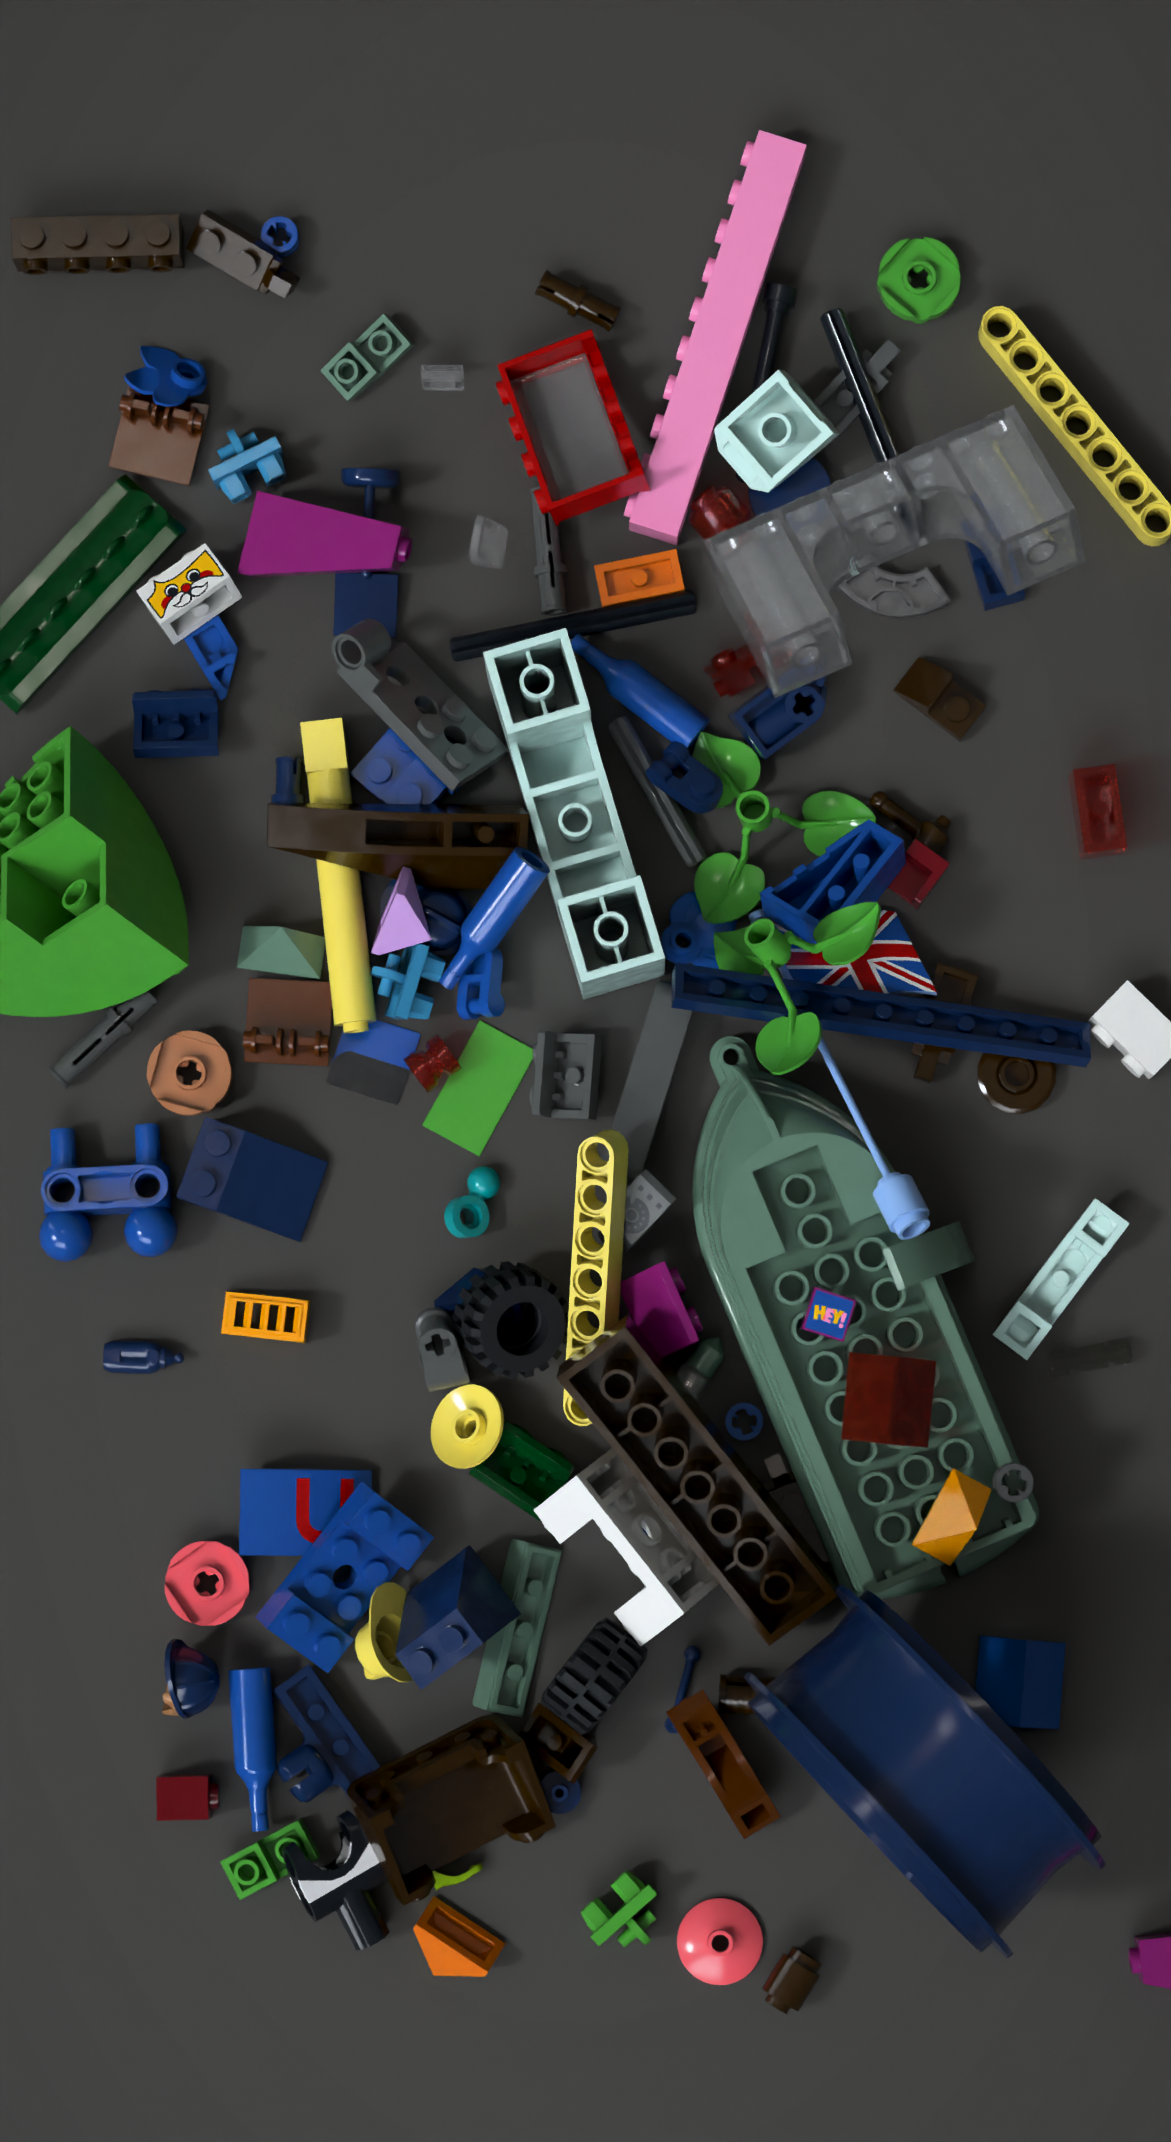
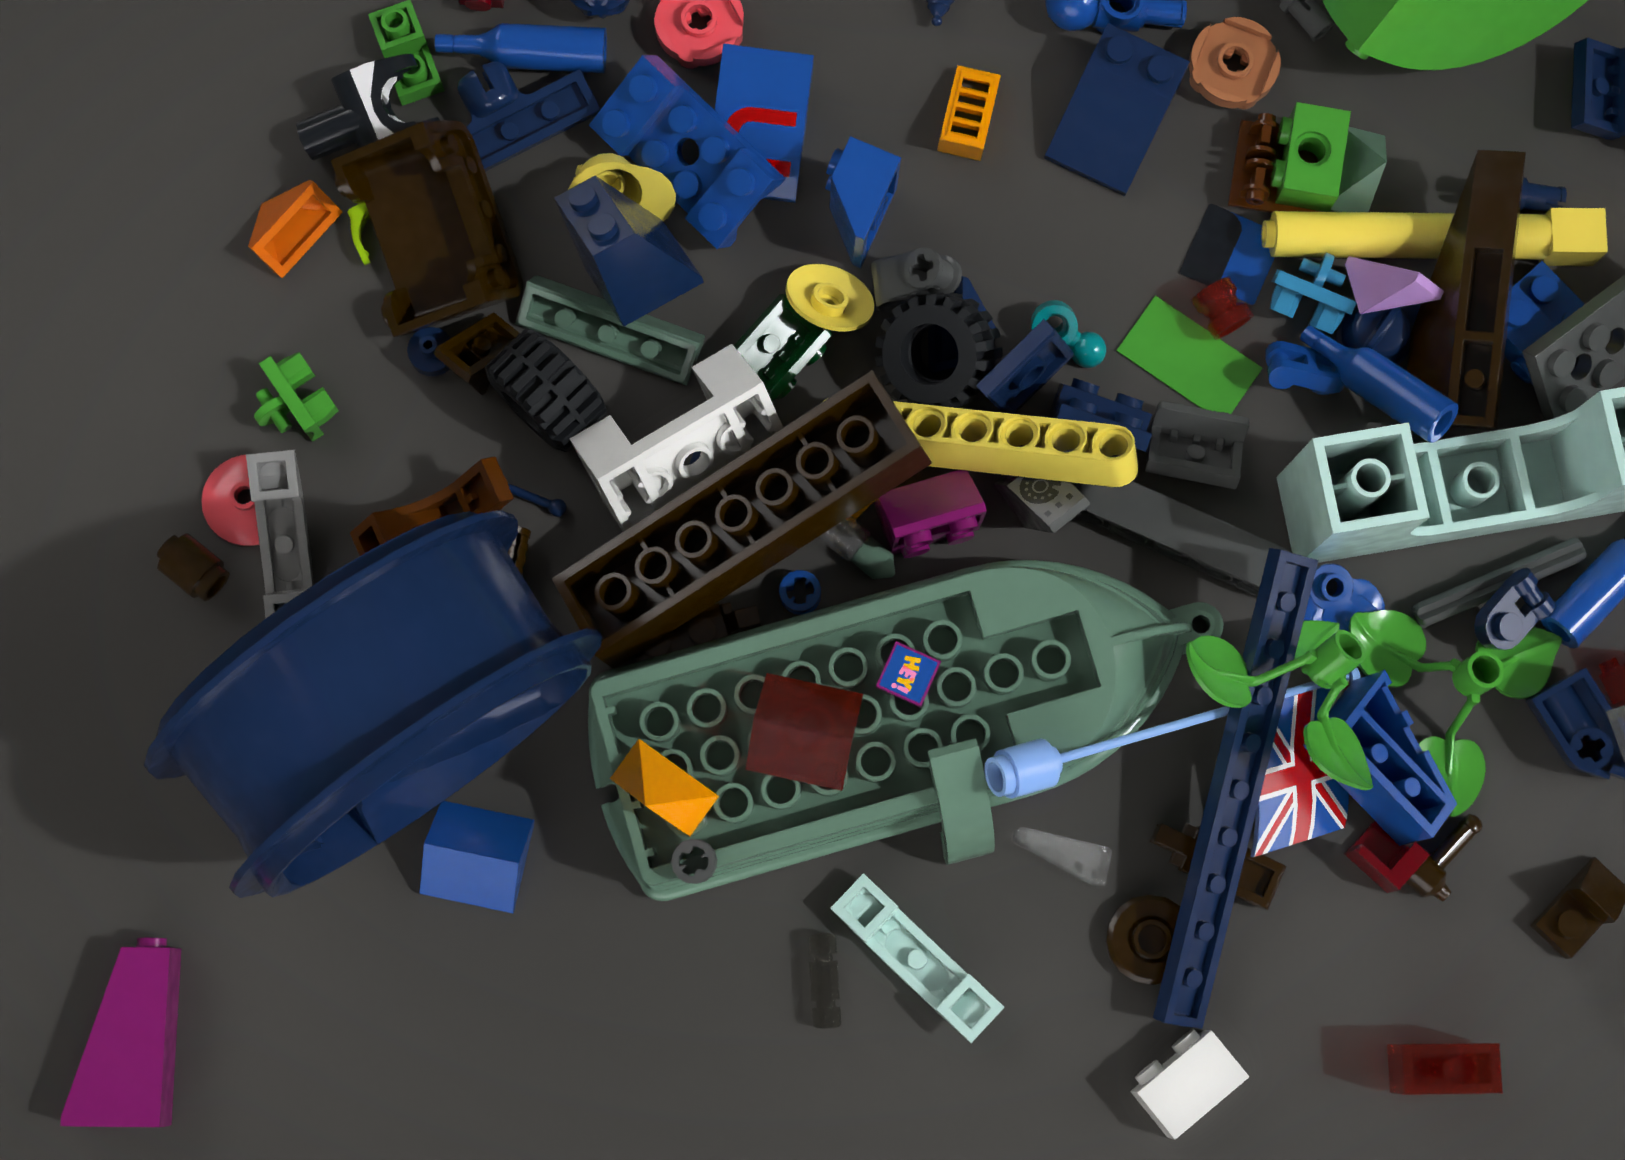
camera: 85 degrees right, 5 degrees down
(257, 983) = (1325, 135): none -> bright green brick
(369, 1409) = (860, 192): none -> blue slope
(520, 1238) = (1026, 368): none -> dark blue tile
(552, 1167) = (1083, 404): none -> dark blue plate
(764, 1898) = (281, 526): none -> light grey slope
(954, 1144) = (1079, 858): none -> clear slope

